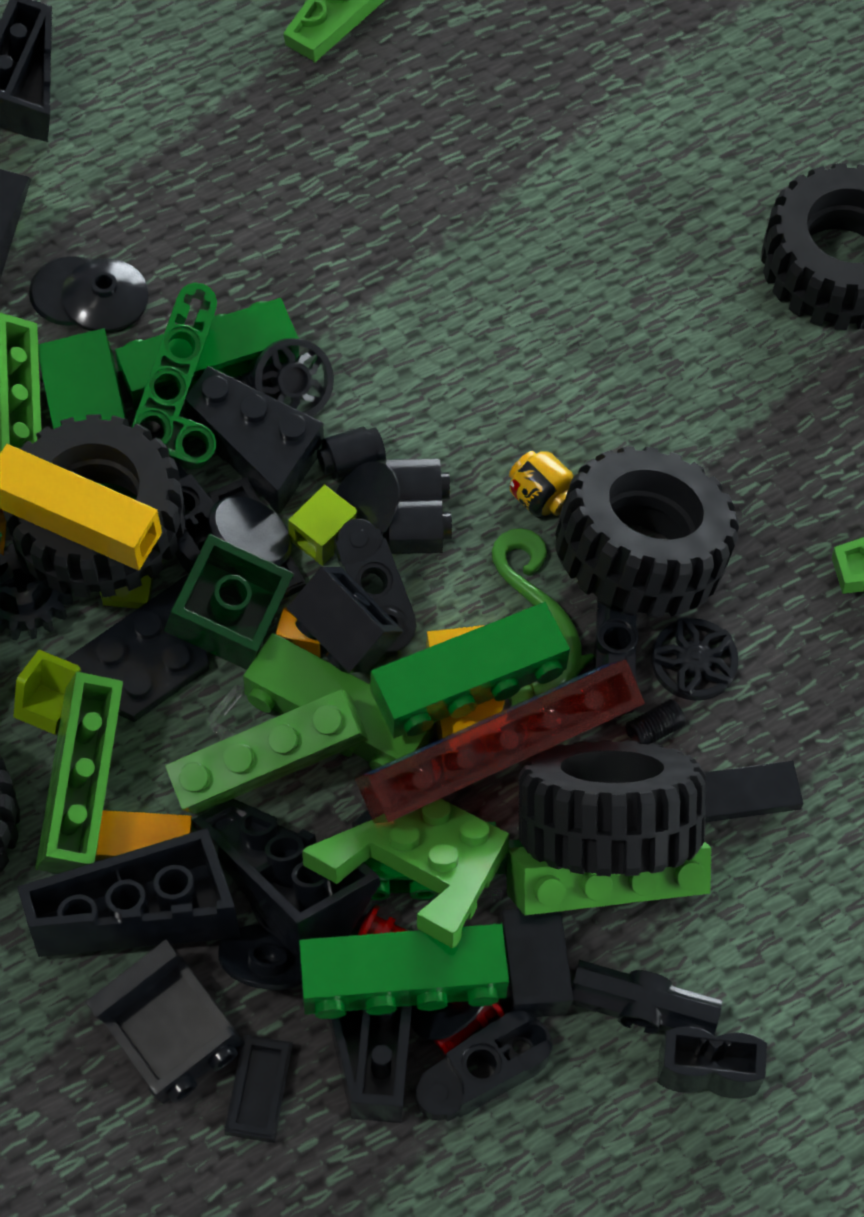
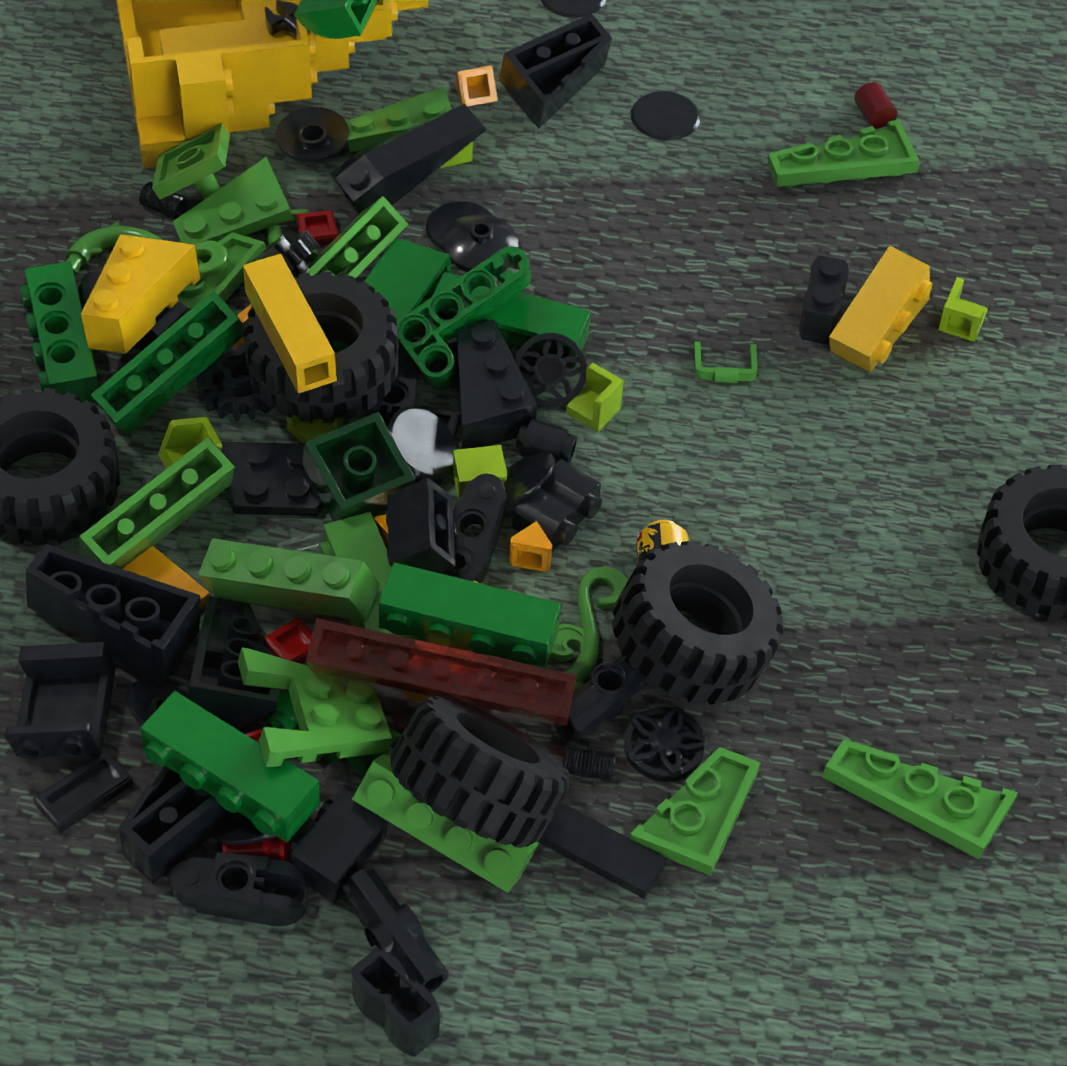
camera: 40 degrees right, 10 degrees down
(149, 53) = (665, 116): none -> black piece
(308, 807) = (290, 641): none -> red tile
(354, 378) = (598, 399): none -> lime panel
(434, 276) = (725, 374): none -> bright green piece
(434, 563) = (531, 549): none -> light orange slope
(460, 147) = (823, 299): none -> black brick
(521, 124) = (882, 309): none -> yellow wedge
(579, 84) = (961, 316): none -> lime panel
(782, 698) = (702, 813): none -> bright green wing

